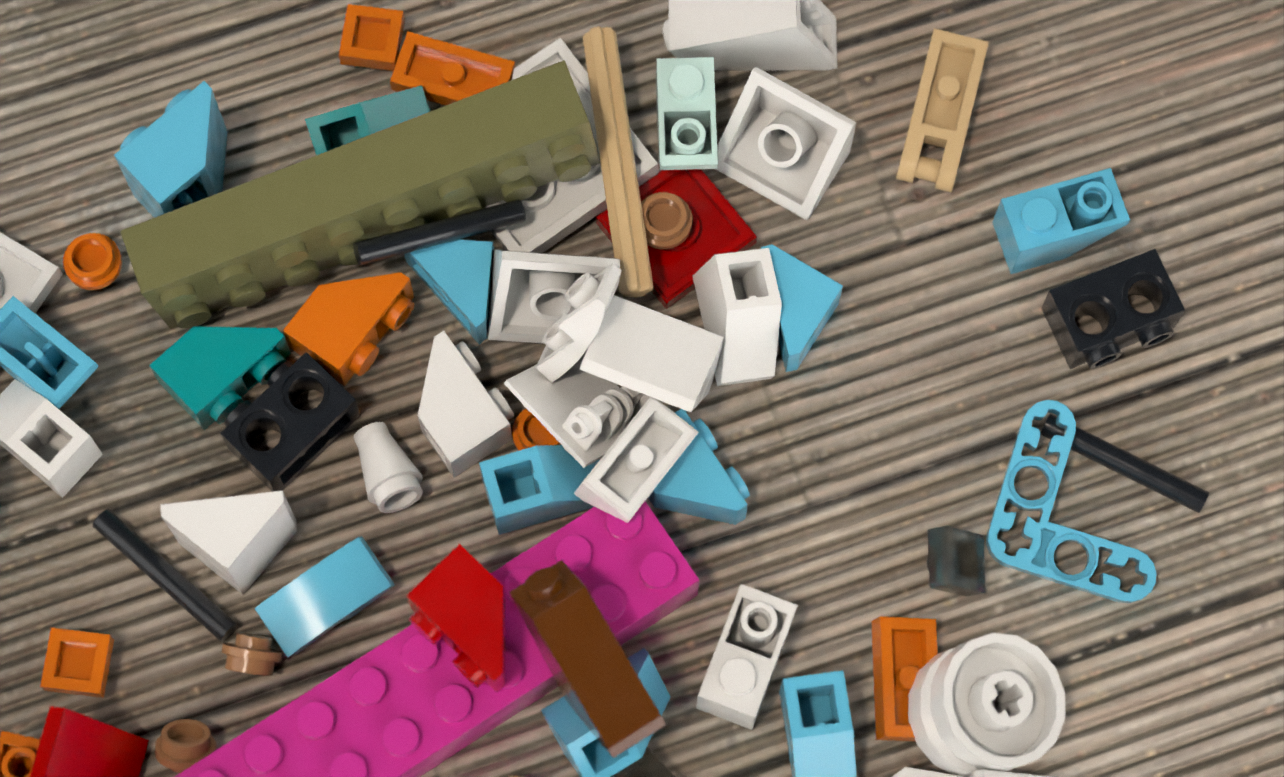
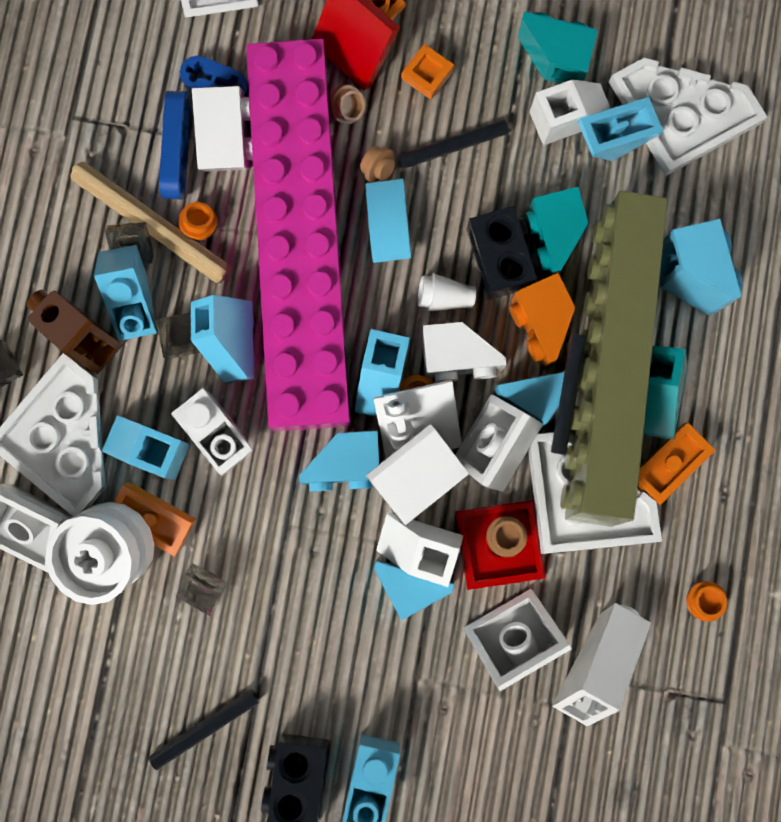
camera: 120 degrees right, 10 degrees up
(92, 261) = (667, 188): orange plate -> none
(233, 533) = (445, 177): white slope -> none
(371, 37) = (724, 428): orange plate -> none
(466, 611) = (315, 276): red slope -> none
(580, 322) = (462, 442): white slope -> none
(586, 658) = (246, 325): reddish brown slope -> none
(617, 161) = (558, 528): tan axle -> none
(637, 461) = (357, 429): white slope -> none
(686, 113) = (566, 588): light aqua slope -> none
(943, 108) = (488, 757): tan plate -> none
(1045, 535) = (186, 653): medium azure beam -> none

